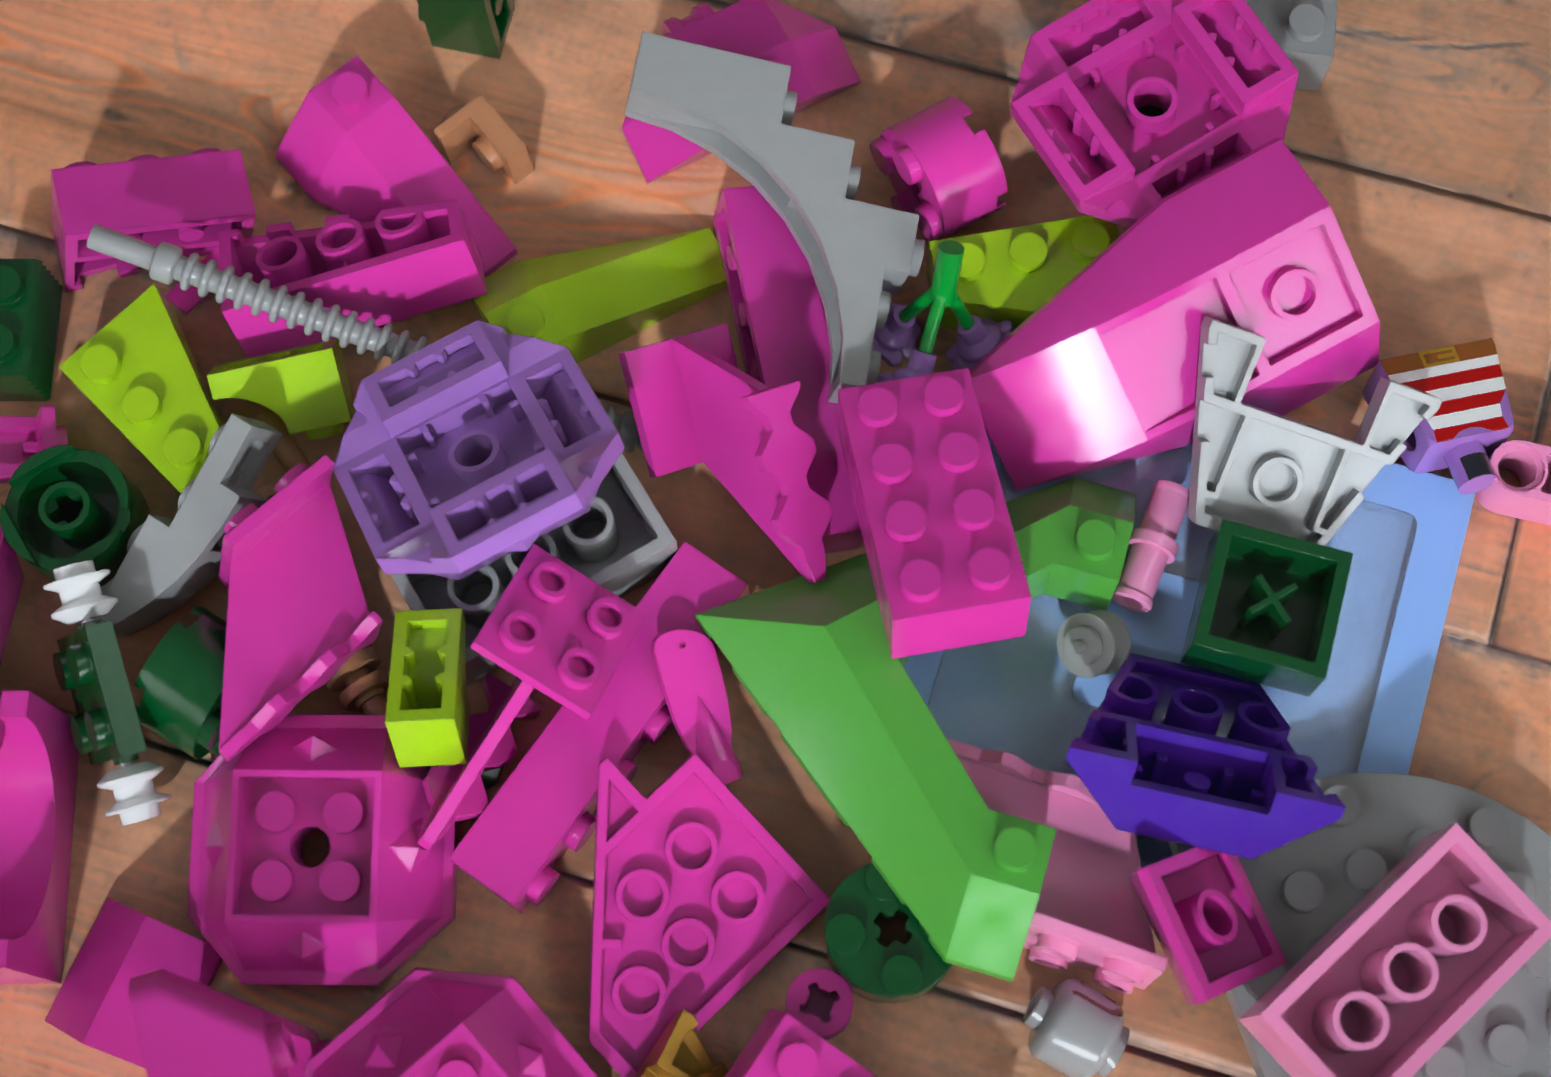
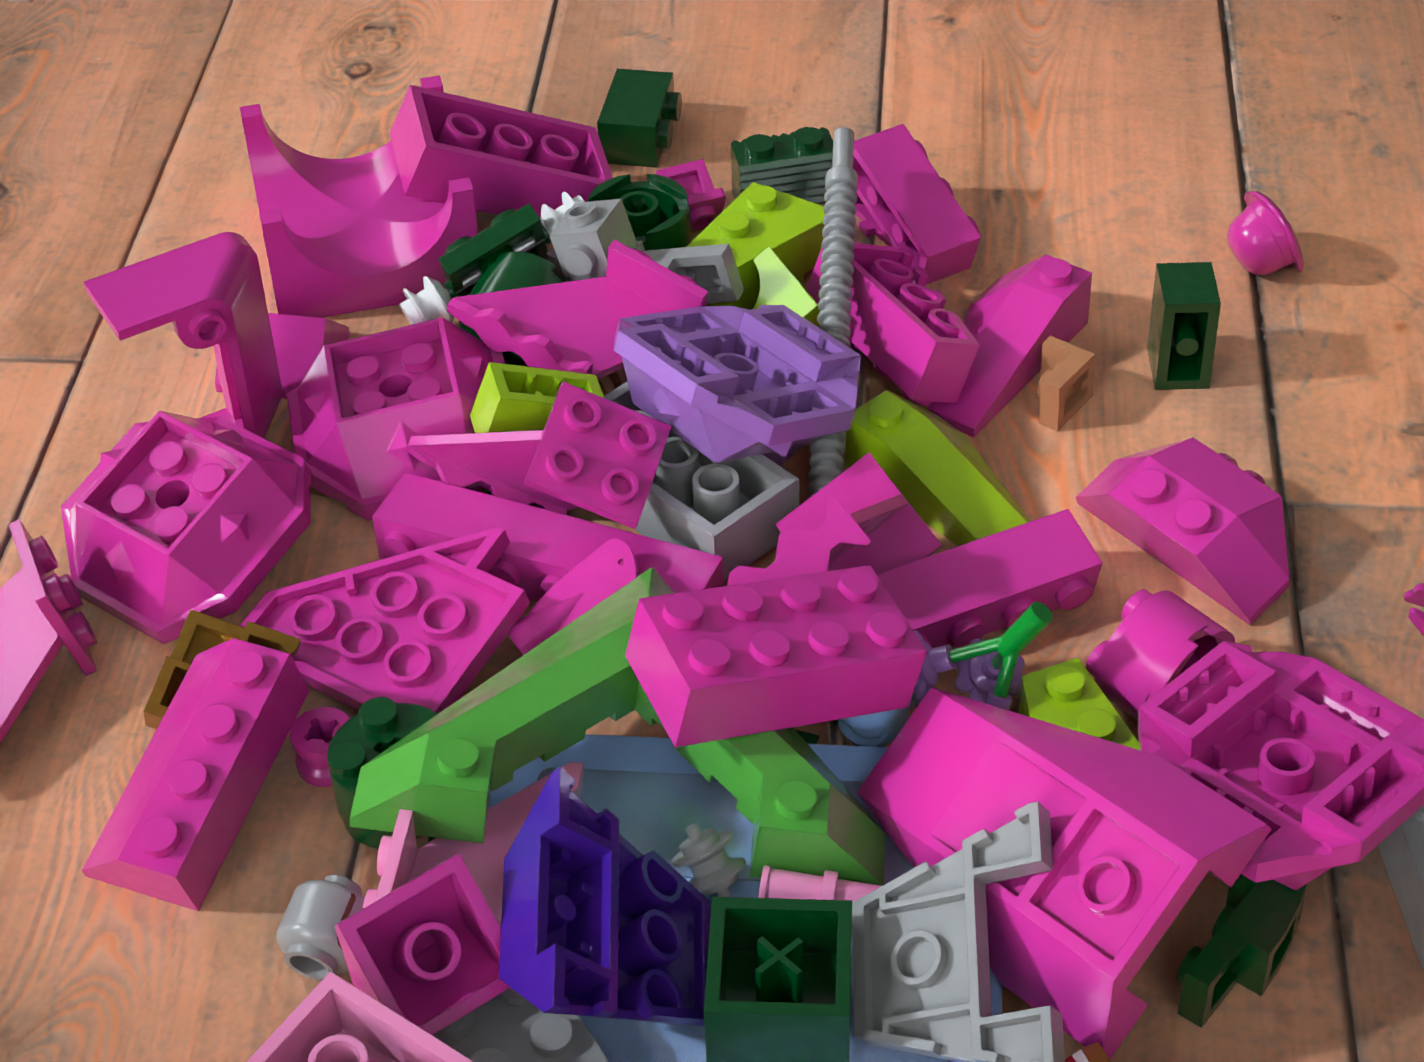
camera: 75 degrees right, 30 degrees down
(154, 567) = (586, 233): none -> light grey brick
(745, 117) = (1088, 545): light grey arch -> none

